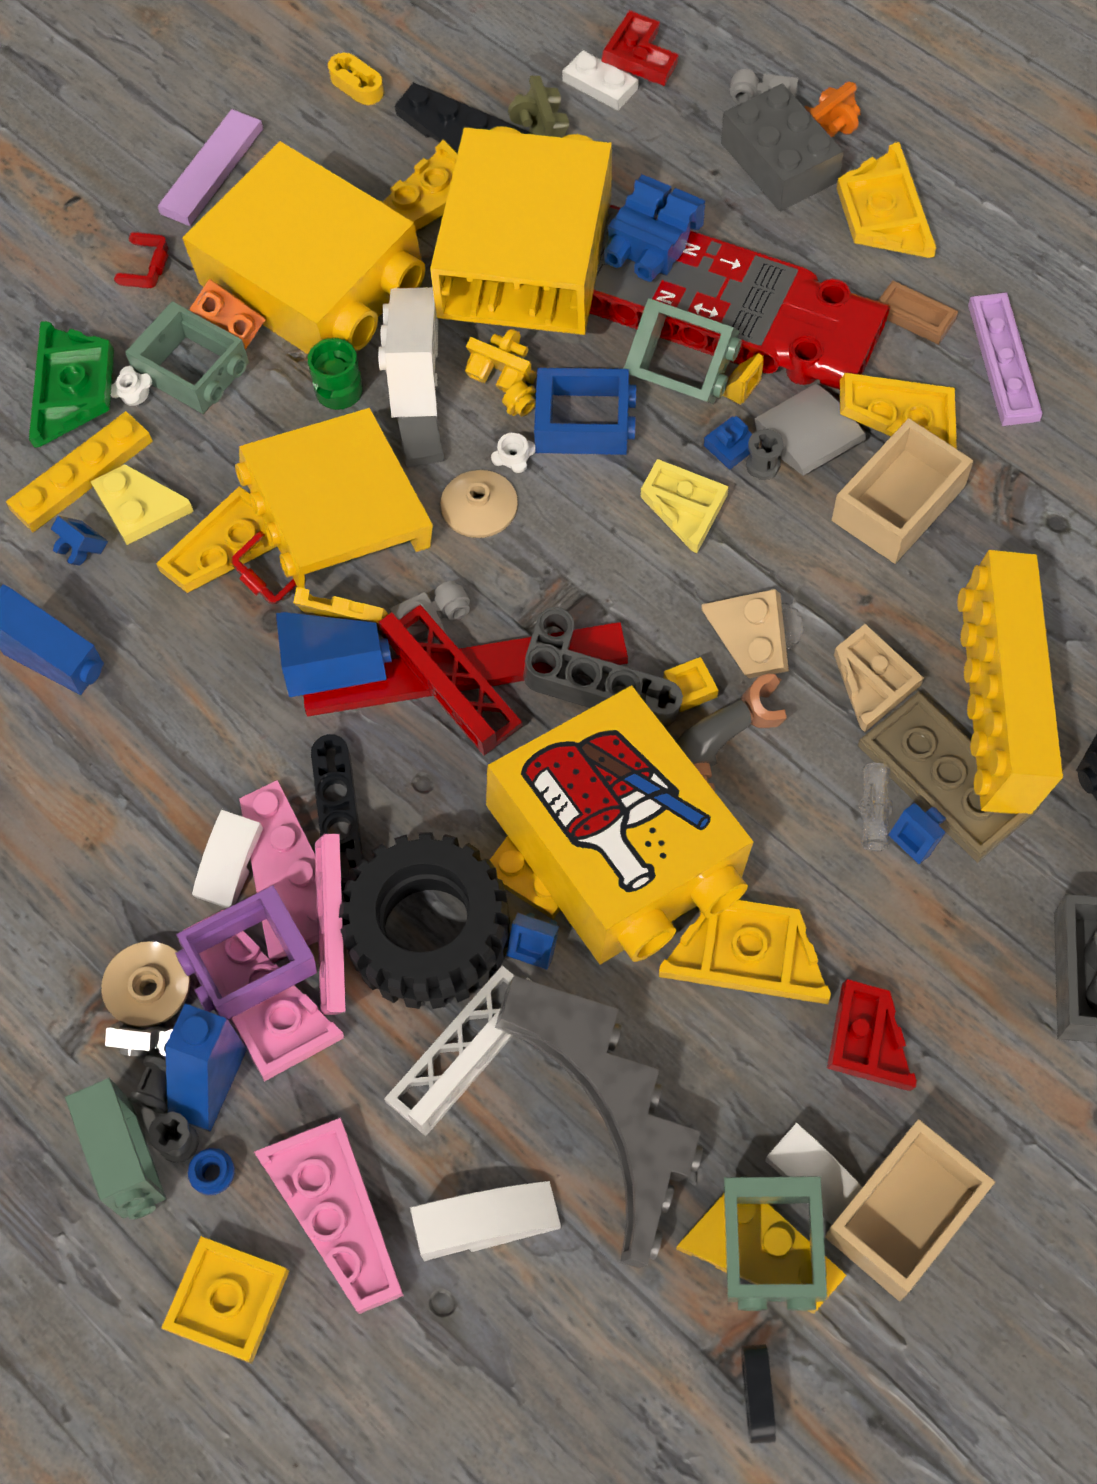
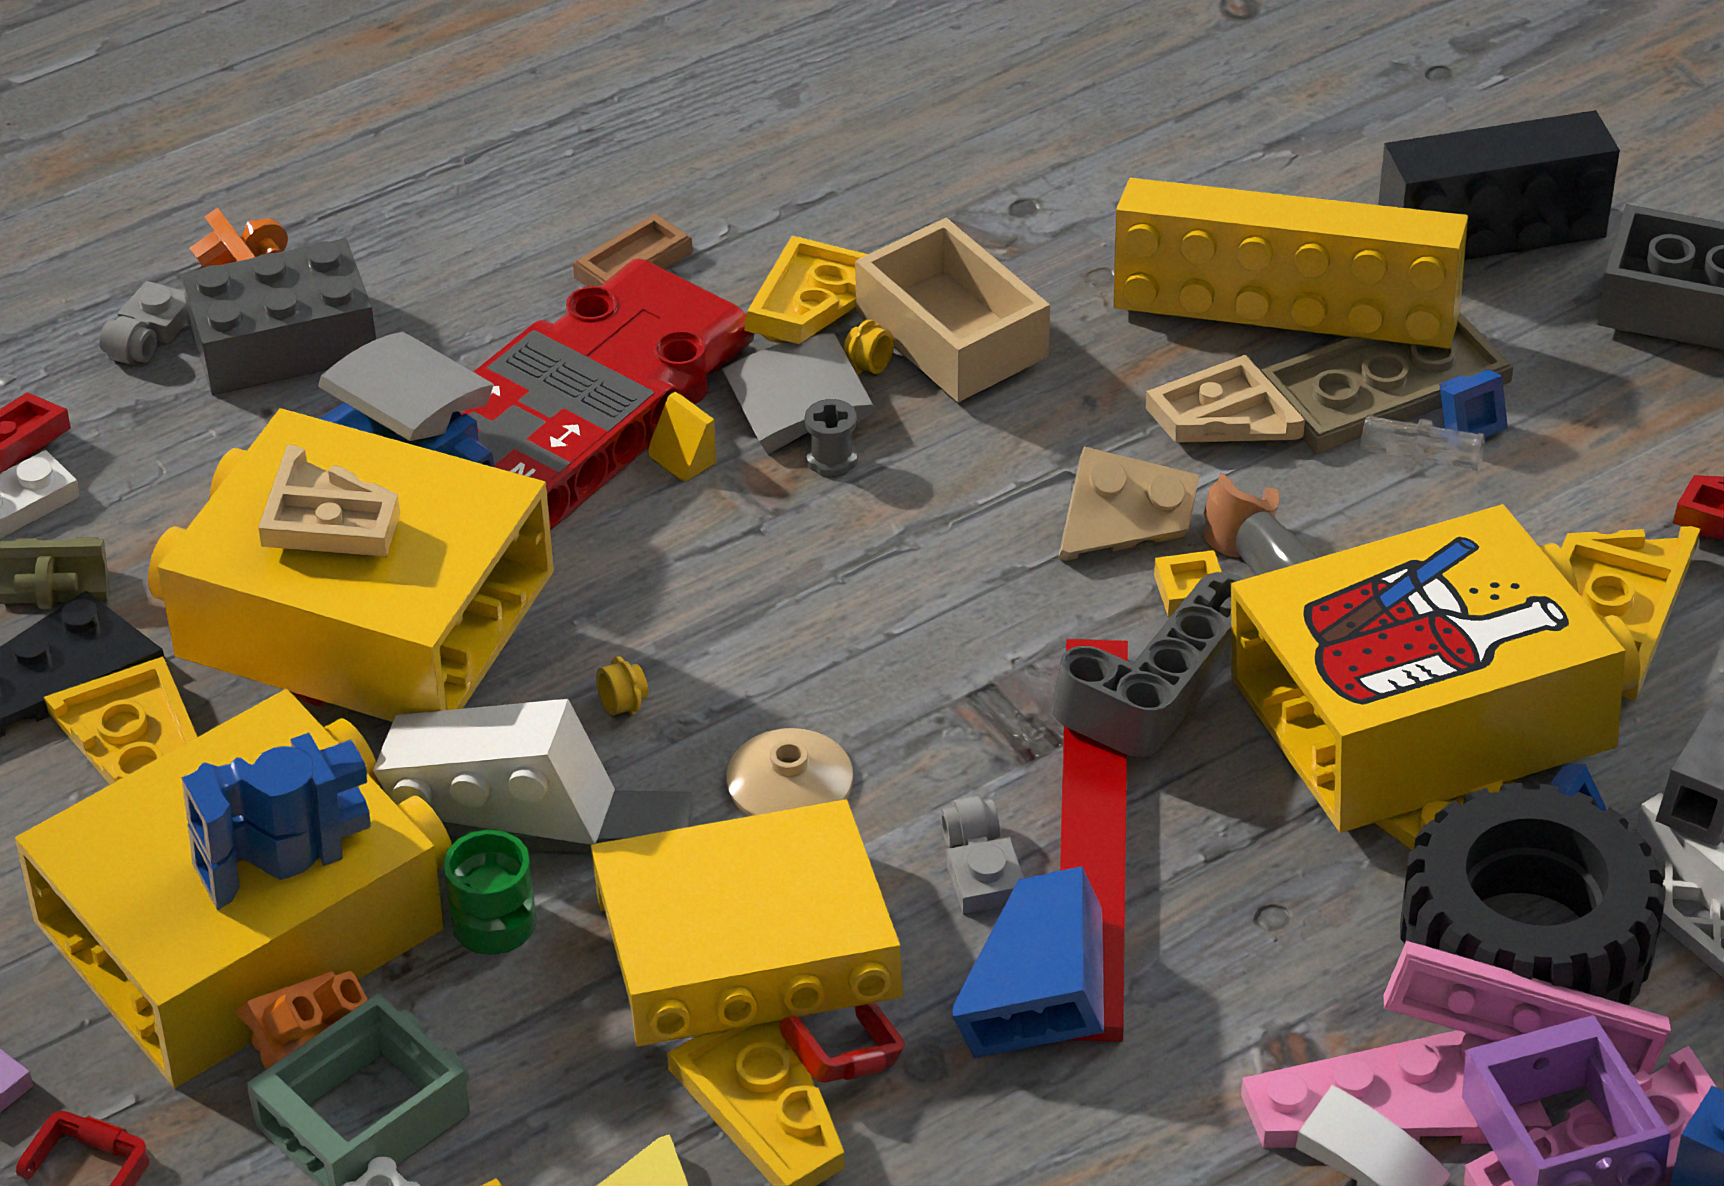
camera: 80 degrees left, 20 degrees down
(293, 236) = (273, 812): none -> blue hips
(337, 607) = (956, 959): yellow wing -> none
(344, 809) = (1307, 1003): black beam -> none
(444, 684) = (1130, 828): red fence -> none
(485, 357) = (539, 678): yellow hips -> none
(513, 443) = (716, 712): white plate -> none
(517, 183) = (327, 510): none -> tan wing
(583, 438) = (693, 661): blue window -> none
(648, 336) = (595, 507): sand green window -> none
(671, 203) = (405, 385): none -> light grey slope
(684, 501) = (879, 537): light yellow wing -> none
(729, 442) = (786, 475): blue tile -> none
(859, 454) = (869, 347): none -> yellow plate
(885, 206) = (435, 242): yellow wing -> none
(1004, 359) = (747, 193): lavender tile -> none

